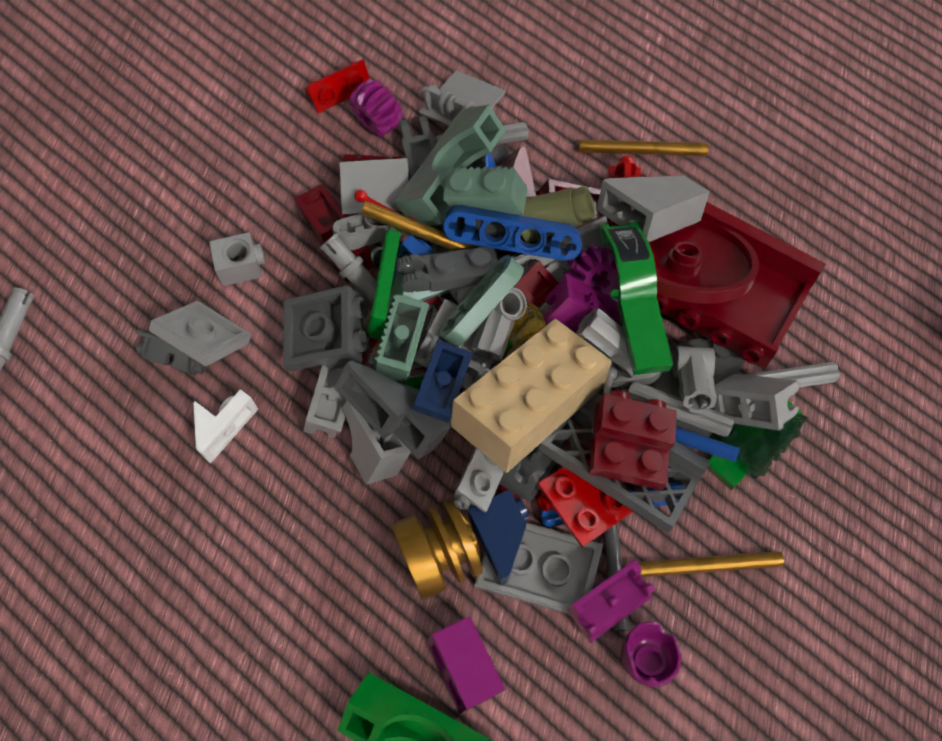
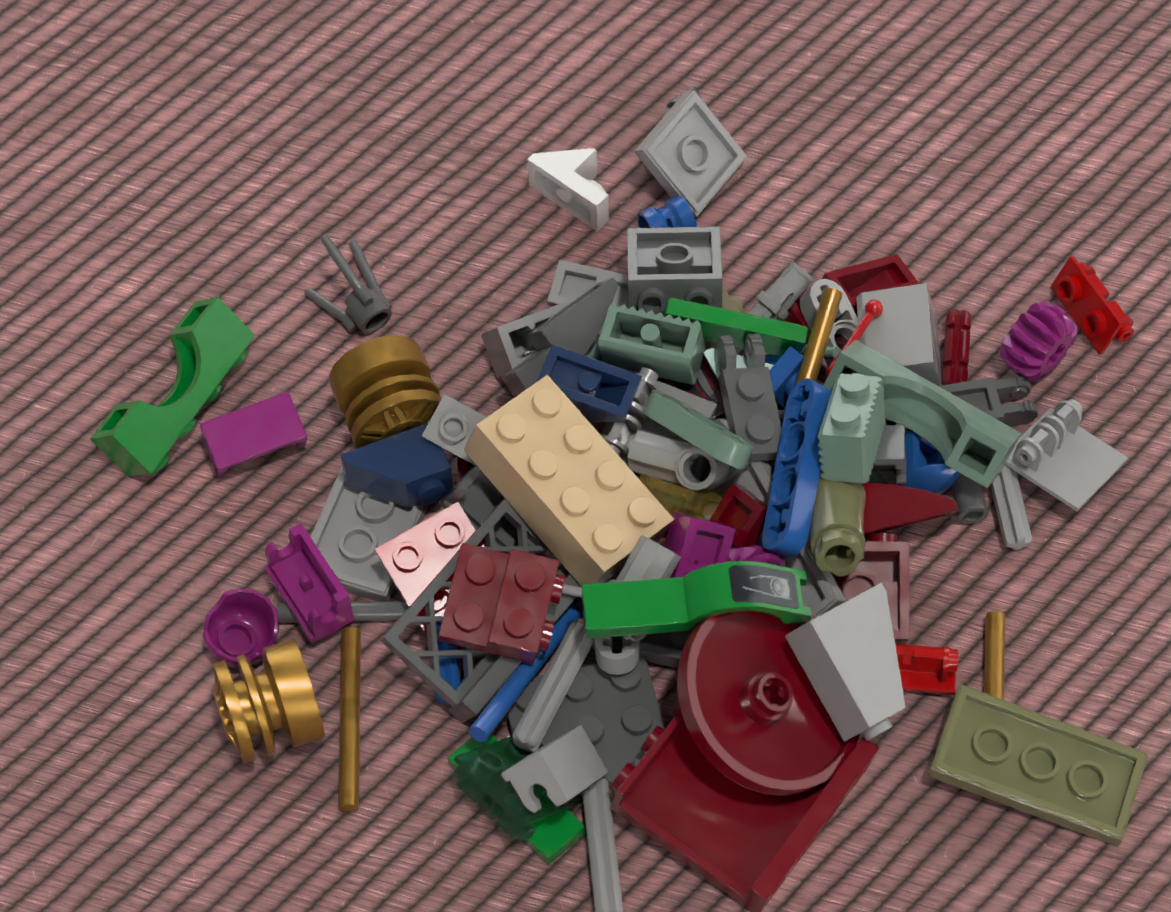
camera: 95 degrees right, 10 degrees down
(227, 249) = (802, 177): light grey brick -> none
(260, 349) = (673, 214): none -> blue wheel
(333, 580) = (365, 307): none -> dark grey plant
(689, 122) = (1038, 765): none -> olive tile
(695, 372) = (606, 700): light grey piece -> none
(723, 621) = (268, 701): none -> pearl gold wheel

